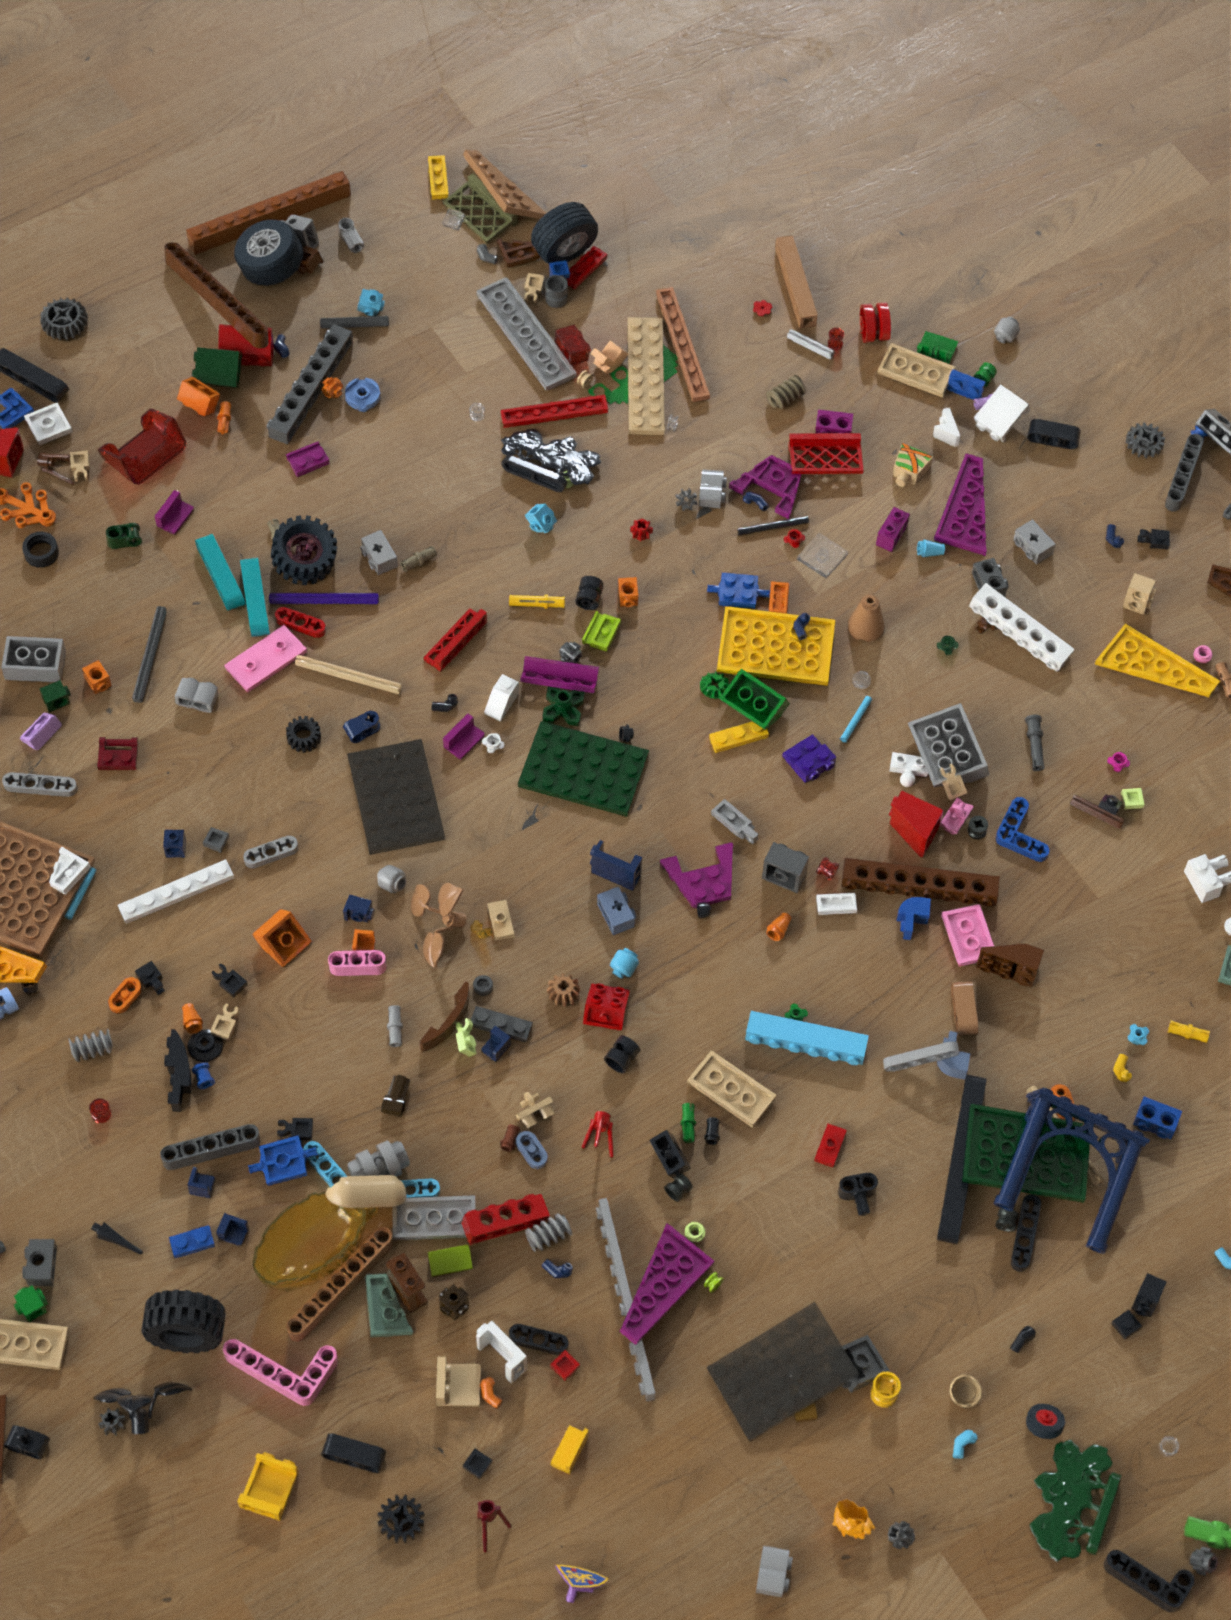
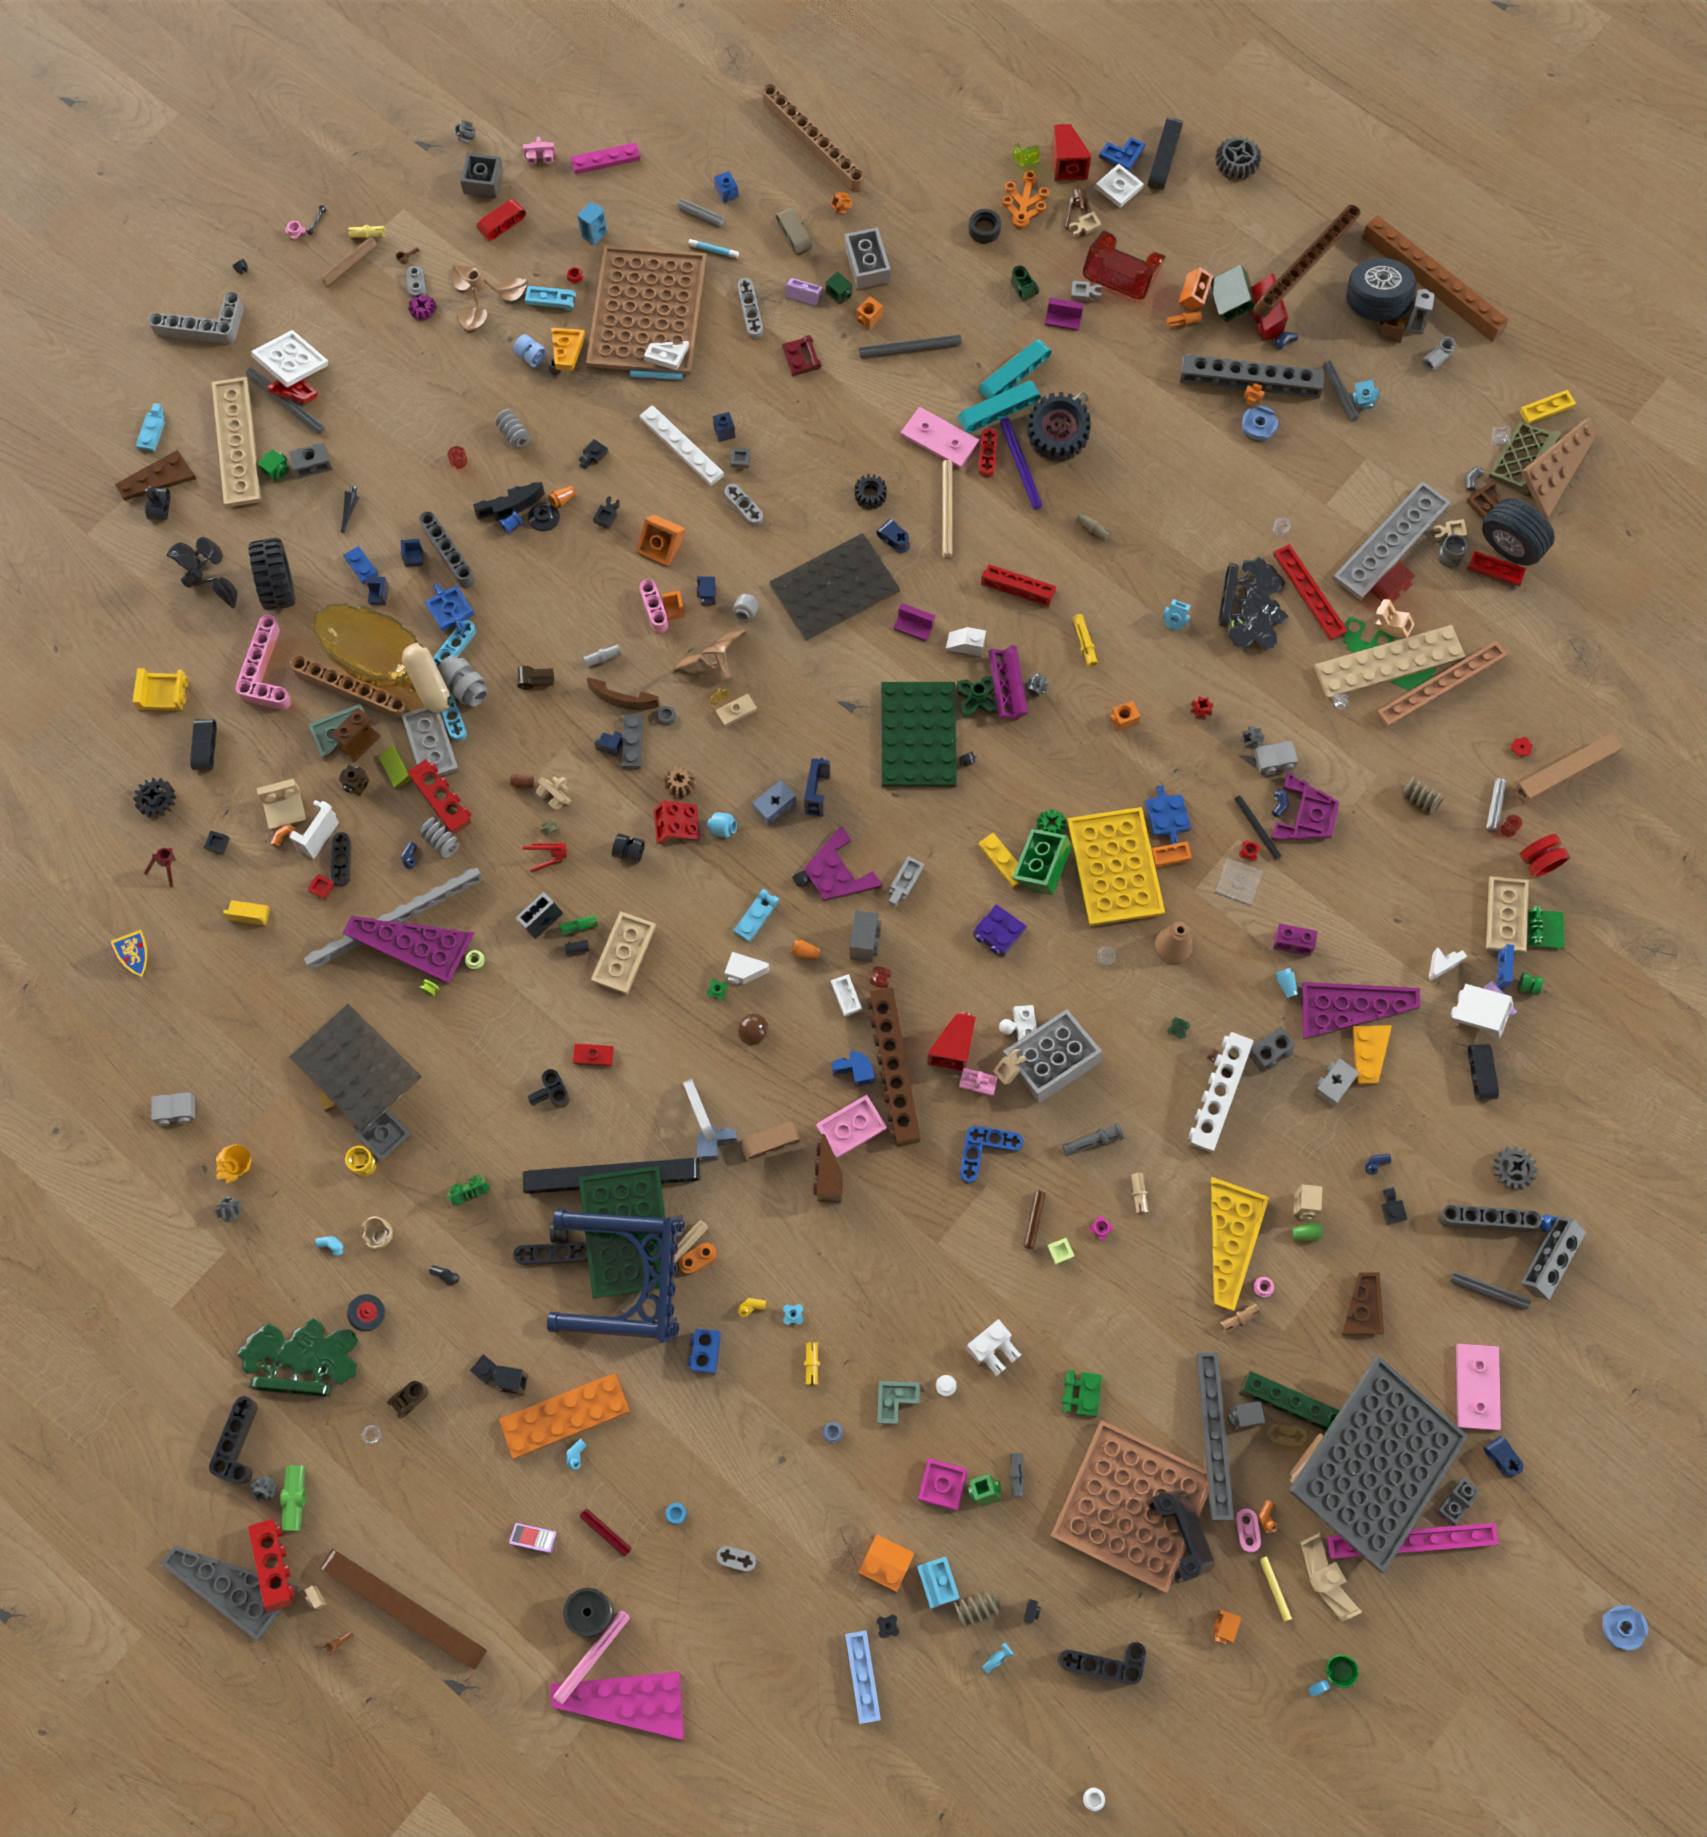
camera: 75 degrees right, 10 degrees up
(122, 995) = (570, 439): orange plate -> none
(154, 489) = (1083, 290): none -> light grey plate
(196, 694) = (879, 394): light grey brick -> none
(225, 1025) = (563, 523): tan plate -> none
(299, 1126) = (483, 610): black plate -> none
(307, 459) = (1168, 402): magenta plate -> none
(379, 552) = (1086, 491): light grey brick -> none
(446, 706) = (947, 601): black arm -> none
(465, 1041) = (604, 716): yellowish green plate -> none
(494, 737) = (918, 644): white plate -> none
(531, 1151) = (513, 801): sand blue plate -> none
(559, 268) = (1478, 544): blue panel -> none
(572, 1123) = (549, 827): none -> olive plate
(584, 379) = (1359, 607): tan bush -> none
(589, 592) = (1109, 682): black wheel -> none
(601, 631) = (1073, 705): lime plate -> none
(678, 1187) = (512, 933): pearl dark grey wheel -> none
(728, 960) = (756, 916): none -> medium azure plate
(783, 984) = (744, 969): none -> white slope
(800, 624) = (1142, 879): dark blue arm -> none
(806, 1038) = (694, 1005): medium azure brick -> none
(825, 443) = (1374, 845): red fence -> none
(833, 422) = (1405, 851): magenta brick -> none
(845, 994) = (752, 1029): none -> reddish brown hair
(856, 718) = (1060, 962): medium azure bar -> none
(911, 465) = (1381, 938): torso -> none
(942, 1292) = (456, 1191): none -> green hinge
(980, 831) = (974, 1111): pearl dark grey wheel -> none
(1007, 330) = (1598, 992): light grey head -> none
(1009, 509) = (1369, 1052): none -> light orange wing
(1094, 721) = (1139, 1193): none -> tan axle
(1110, 804) = (1045, 1230): black plate -> none
(1144, 1404) = (407, 1399): none -> dark brown piece
(1163, 604) = (1308, 1232): none -> bright green cone
(1189, 1262) = (564, 1415): none -> orange plate

